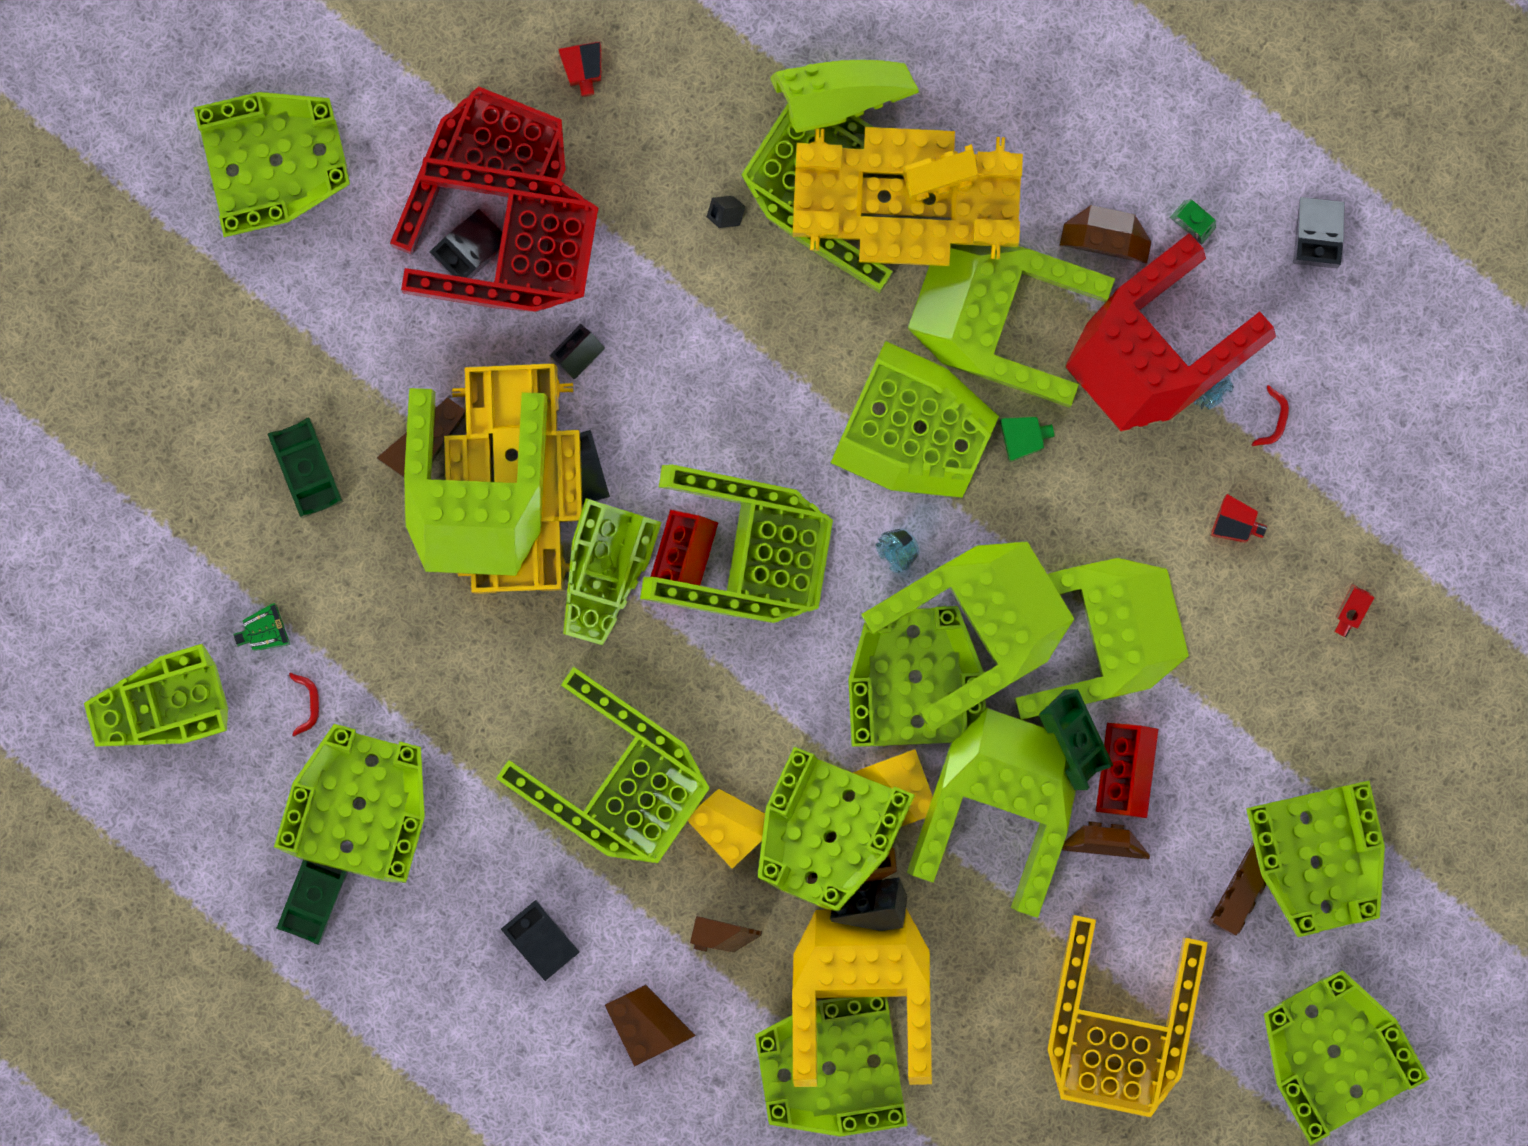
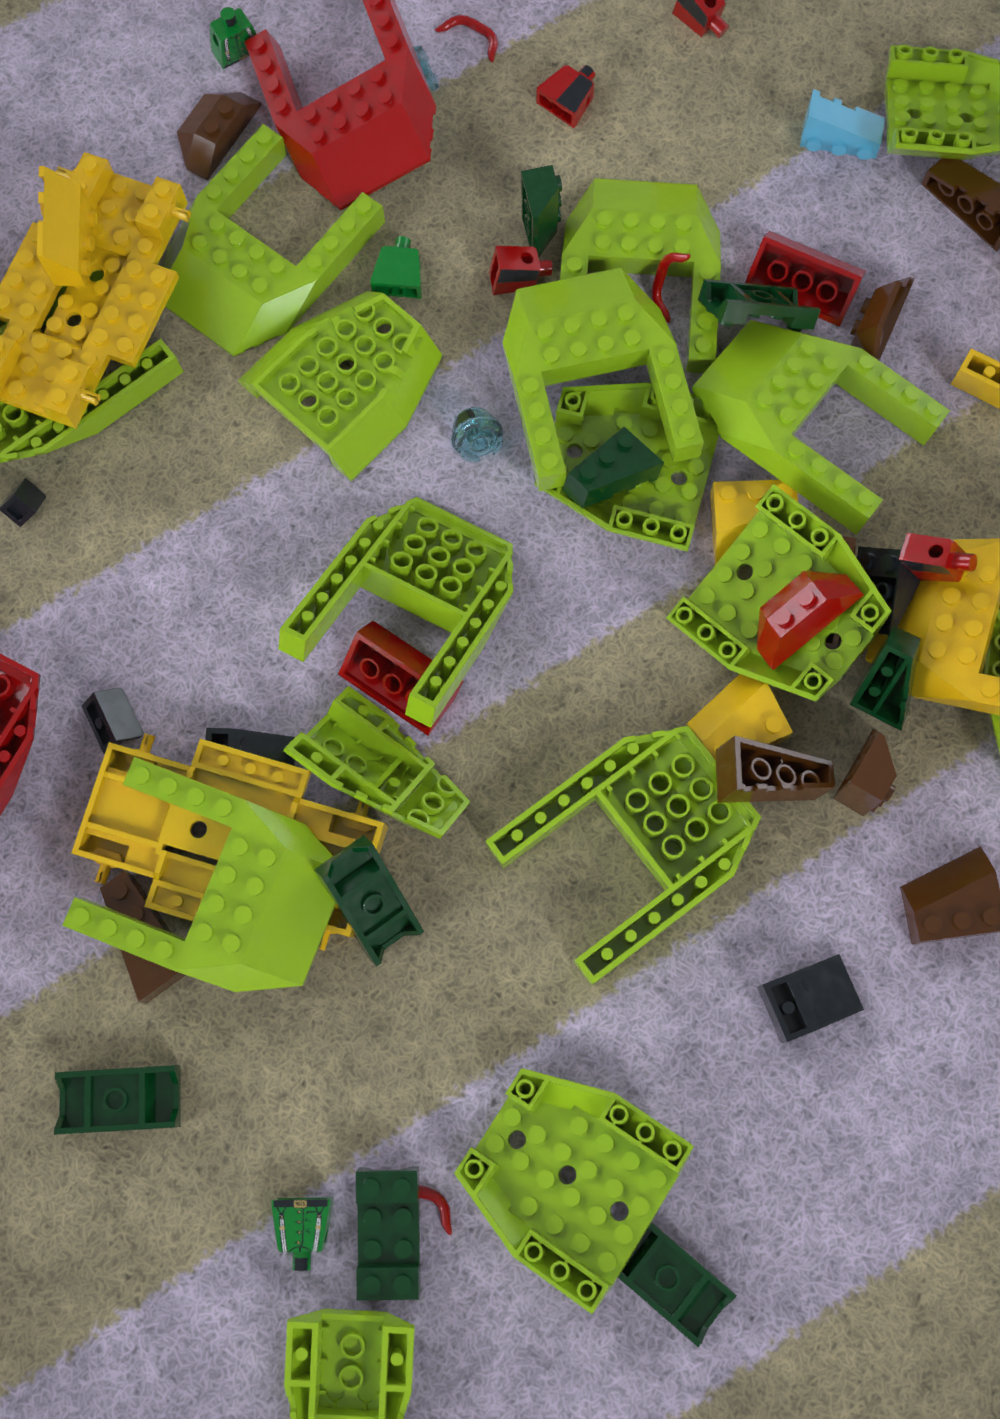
camera: 65 degrees left, 10 degrees down
(279, 692) = (388, 1234): none -> dark green piece
(502, 596) = (368, 898): none -> dark green piece
(691, 857) = (769, 773): none -> reddish brown wedge
(794, 930) = (889, 679): none -> dark green wedge
(822, 846) = (802, 612): none -> red wedge
(892, 940) = (936, 558): none -> red torso
(897, 667) = (612, 468): none -> dark green wedge
(1048, 527) = (516, 268): none -> red torso
(1079, 652) = (660, 278): none -> red animal
(1106, 537) = (540, 205): none -> dark green slope
(1273, 762) = (841, 129): none -> medium azure wedge

